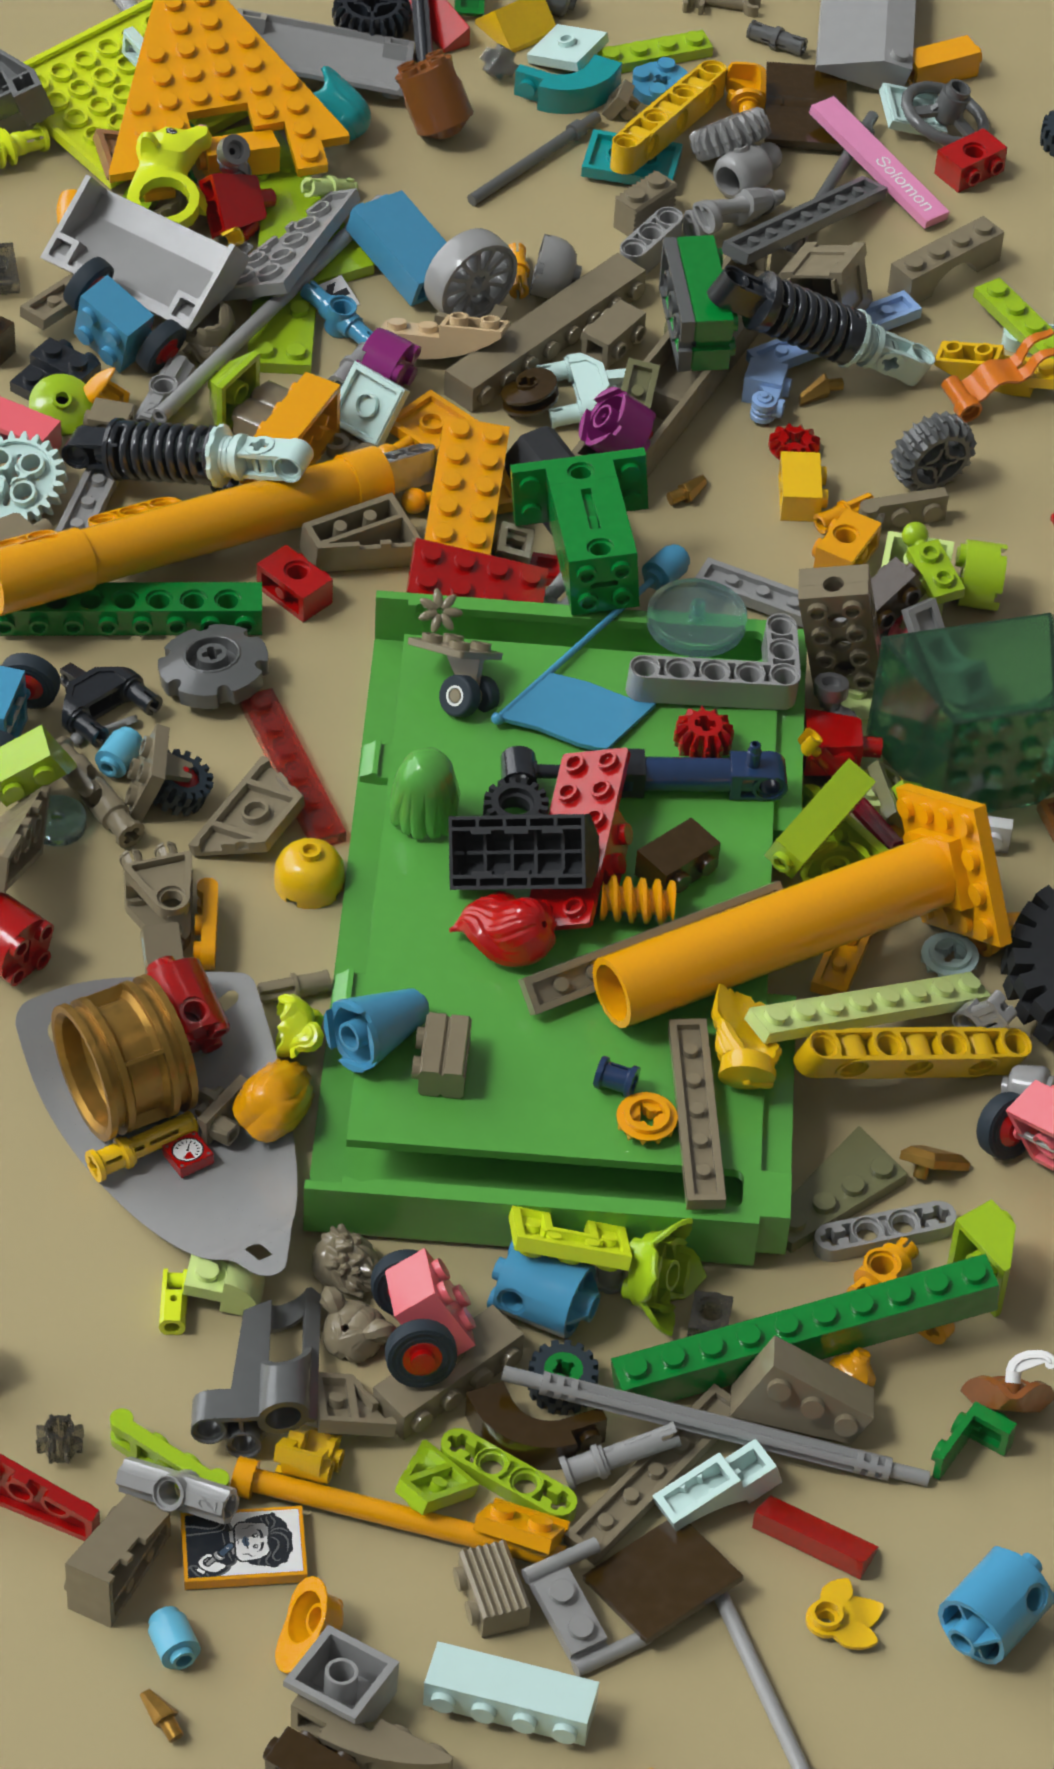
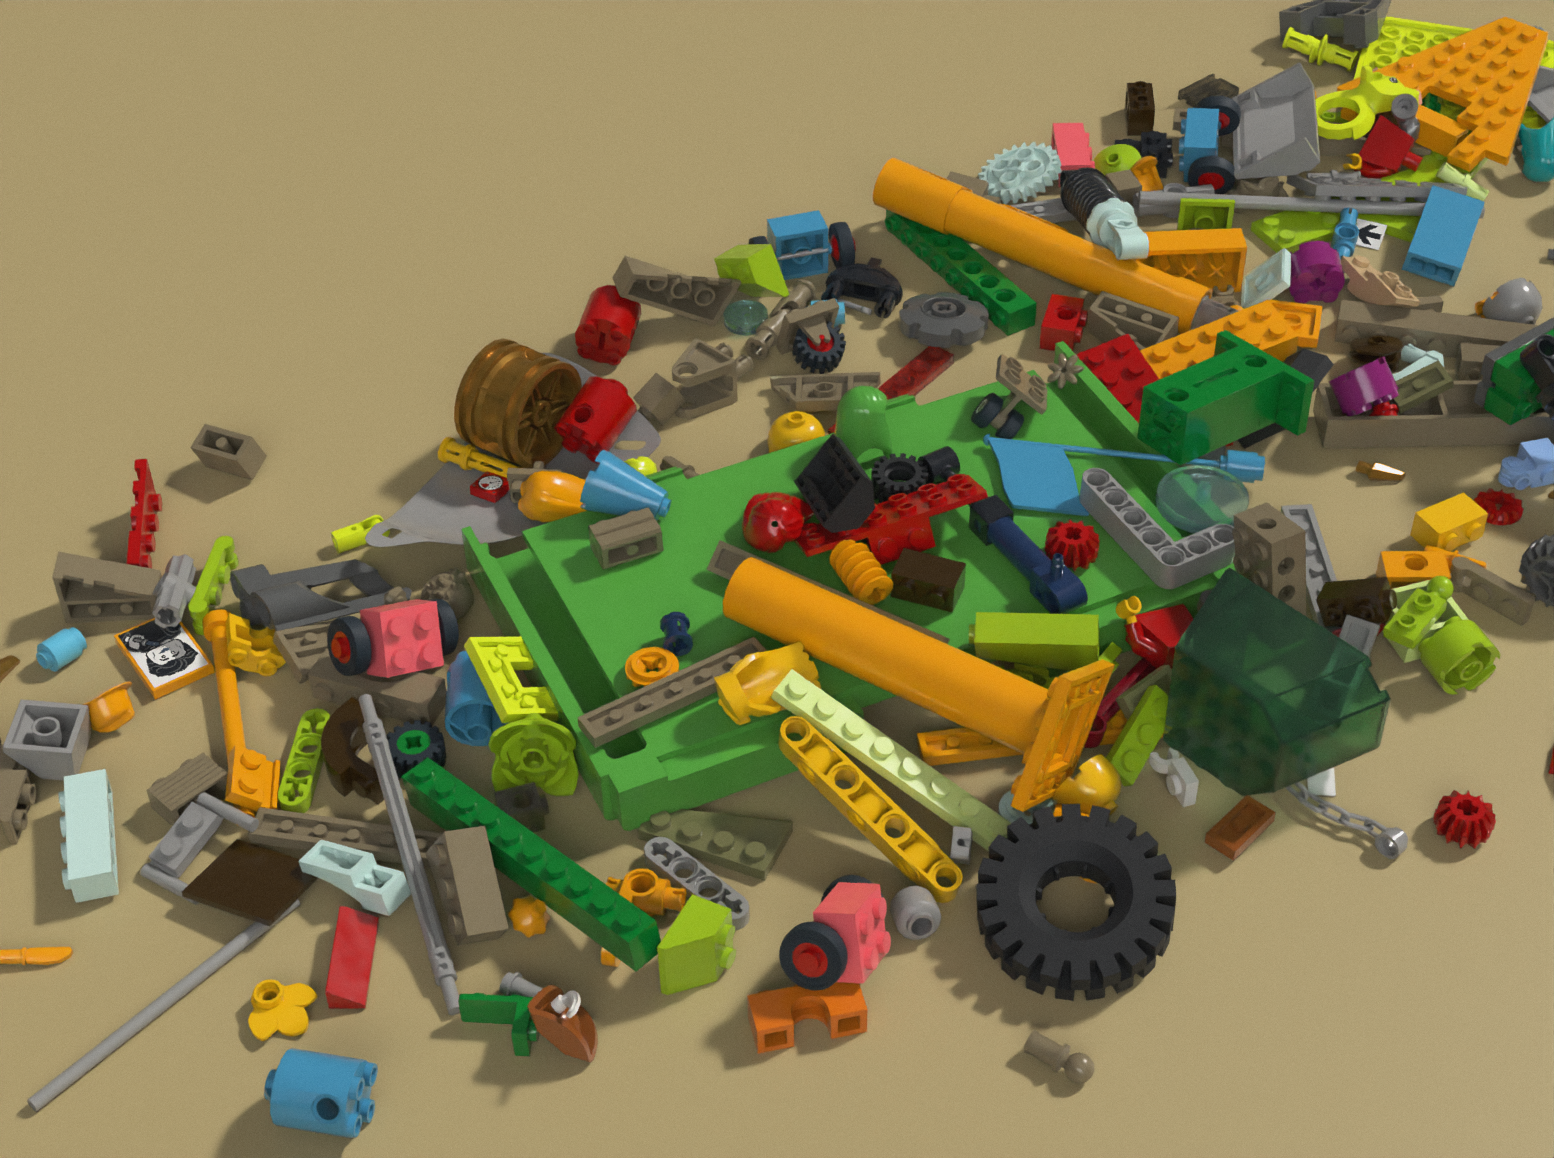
camera: 65 degrees right, 5 degrees down
(59, 1439) = (201, 529): clear smoke gear -> none
(206, 923) = (703, 413): light orange plate -> none
(224, 1283) = (387, 560): yellowish green brick -> none
(434, 1481) = (265, 717): lime wing -> none
(471, 273) = (1445, 266): light grey piece -> none
(599, 1460) = (340, 799): light grey pin -> none
(929, 1157) = (790, 880): pearl gold piece -> none
(935, 1417) = (515, 985): none -> light grey pin

